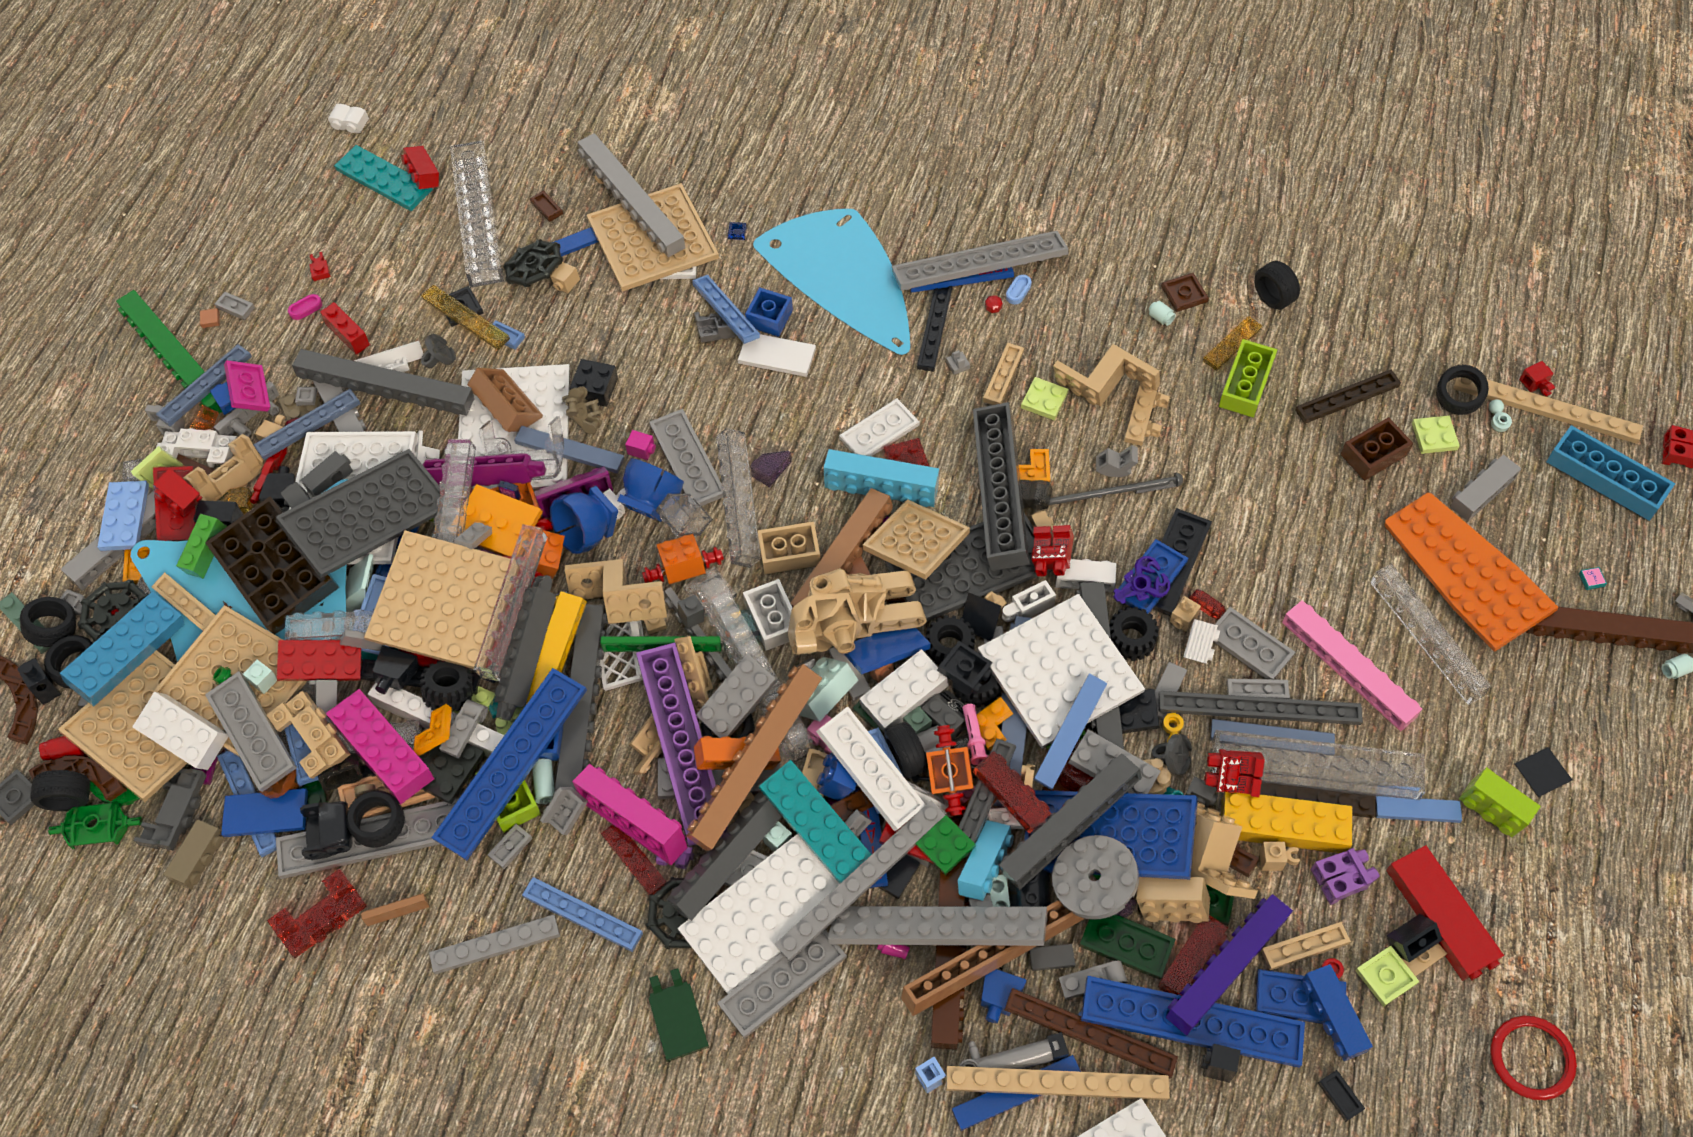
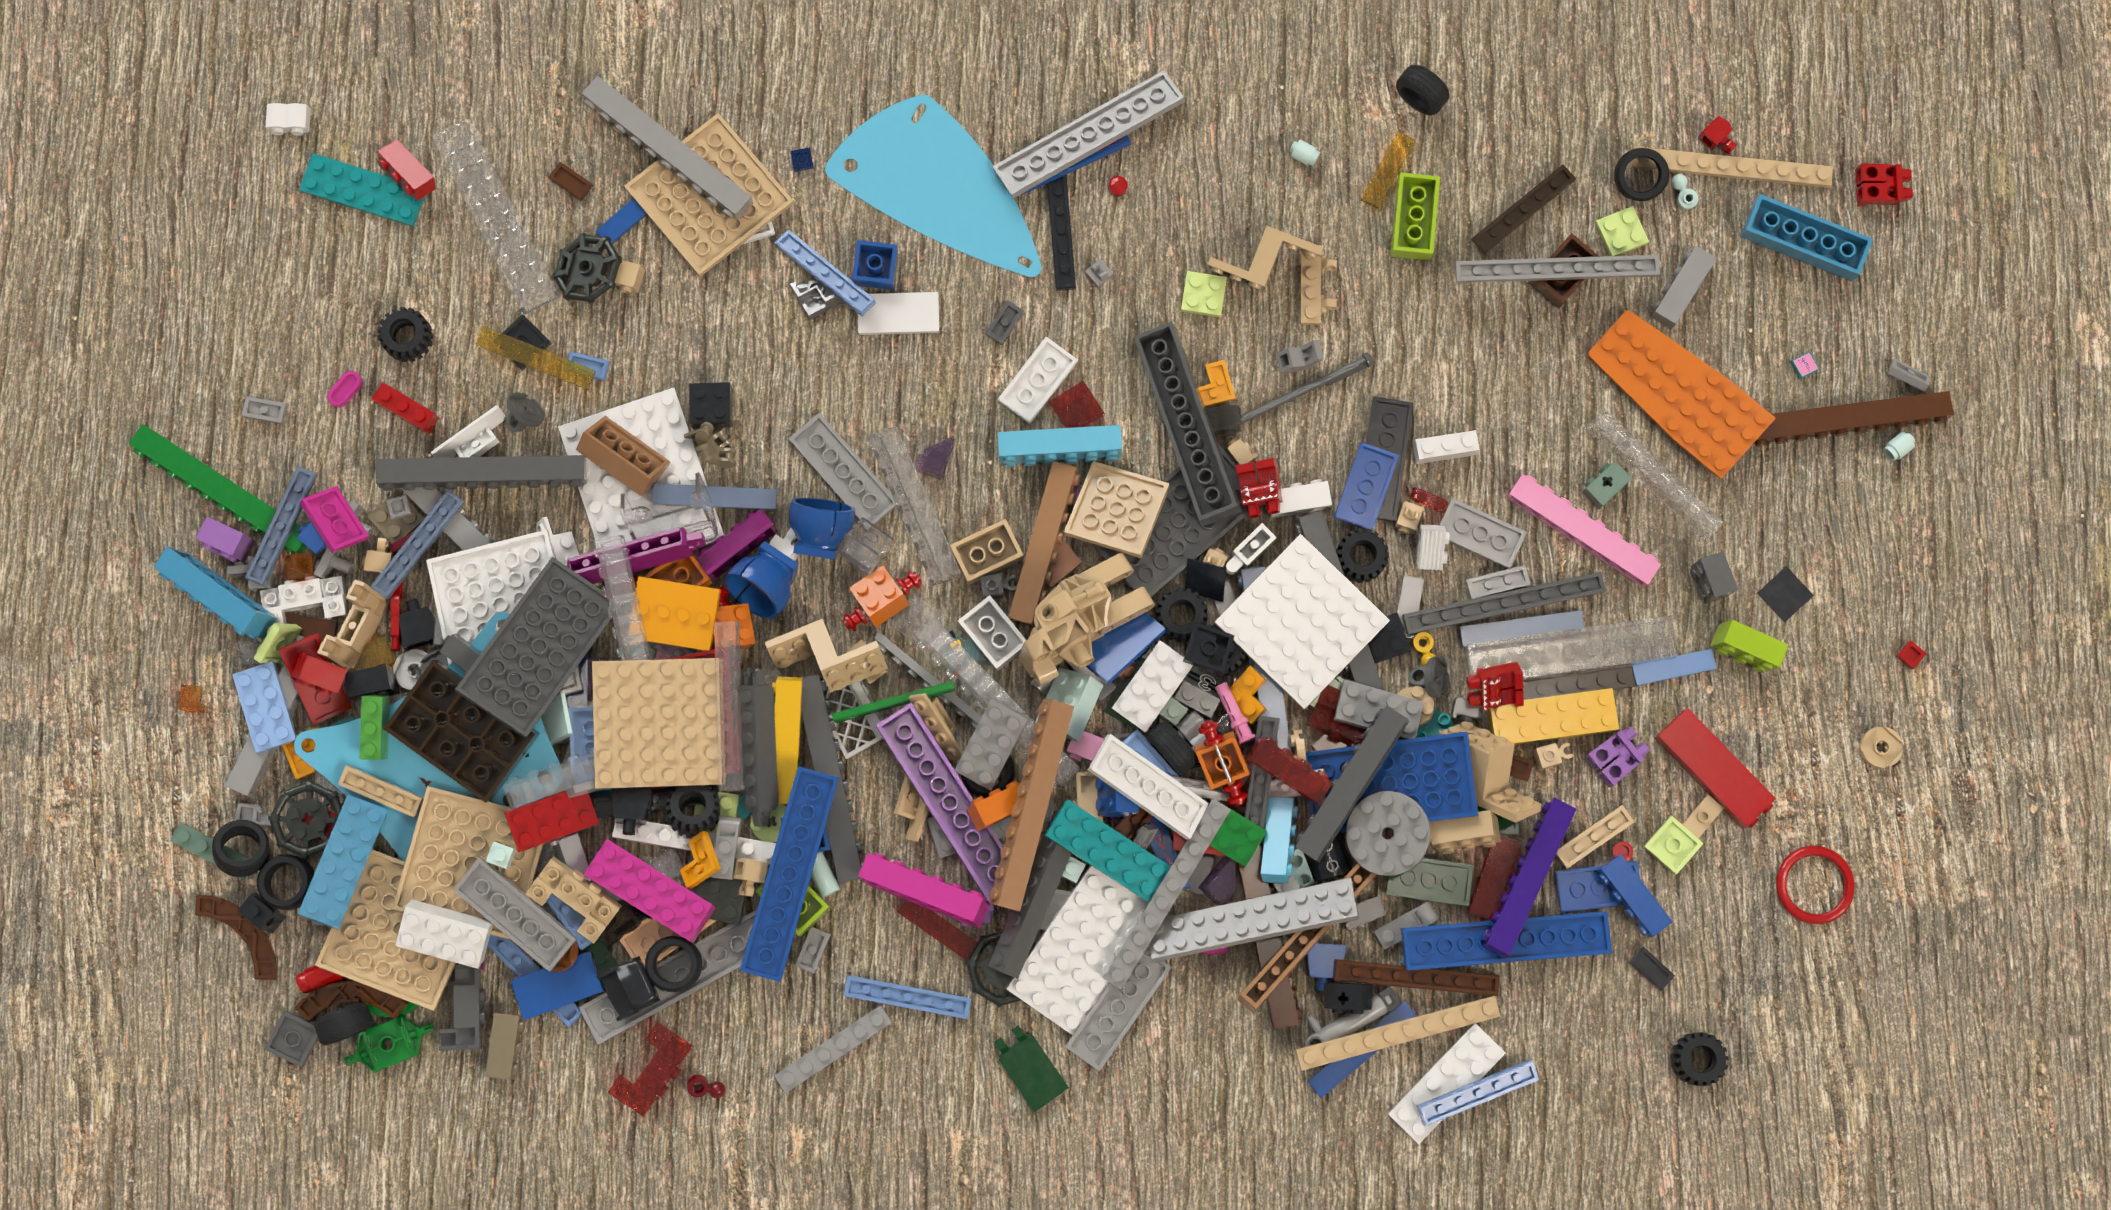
camera: 20 degrees left, 20 degrees up
(66, 498) = (190, 699): none -> clear orange panel
(123, 416) = (214, 593): none -> dark azure brick
(153, 383) = (224, 540): none -> medium lavender brick
(209, 318) = (241, 432): nougat tile -> none
(221, 675) = (460, 864): green plate -> none
(319, 267) = (340, 333): red plate -> none
(327, 473) = (475, 609): dark grey brick -> none
(364, 267) = (394, 323): none -> black tyre
(364, 788) = (650, 937): dark tan tile -> none
(370, 951) = (715, 1089): none -> dark red plate
(395, 909) = (725, 1044): medium nougat tile -> none
(474, 535) = (662, 641): light grey plate -> none
(475, 755) = (750, 872): none -> tan brick
(509, 490) = (675, 572): clear blue tile -> none
(564, 809) = (855, 900): light grey bracket -> none
(640, 445) = (788, 469): dark pink brick -> none
(691, 611) = (912, 658): dark grey brick -> none
(787, 576) = (994, 586): none -> dark grey brick
(864, 380) = (1004, 322): none -> dark grey plate
(918, 887) = (1220, 882): none -> slope
(930, 1074) = (1281, 1058): light blue brick -> none
(1003, 374) = (1152, 276): tan plate -> none
(1015, 1030) = (1337, 995): none -> black brick
(1018, 289) = (1140, 158): light blue tile -> none
(1070, 731) = (1328, 688): medium blue tile -> none
(1141, 583) = (1359, 500): dark purple animal -> none
(1184, 292) = (1322, 115): reddish brown tile -> none
(1220, 1063) = (1540, 973): black brick -> none
(1234, 563) = (1445, 447): none -> white brick
(1370, 439) = (1557, 268): none -> light grey plate
(1381, 631) = (1615, 477): none -> sand green brick
(1414, 937) = (1692, 803): black brick -> none
(1473, 733) = (1713, 577): none -> dark grey piece
(1614, 946) = (1892, 746): none -> tan plate
(1667, 858) = (1911, 654): none -> red tile

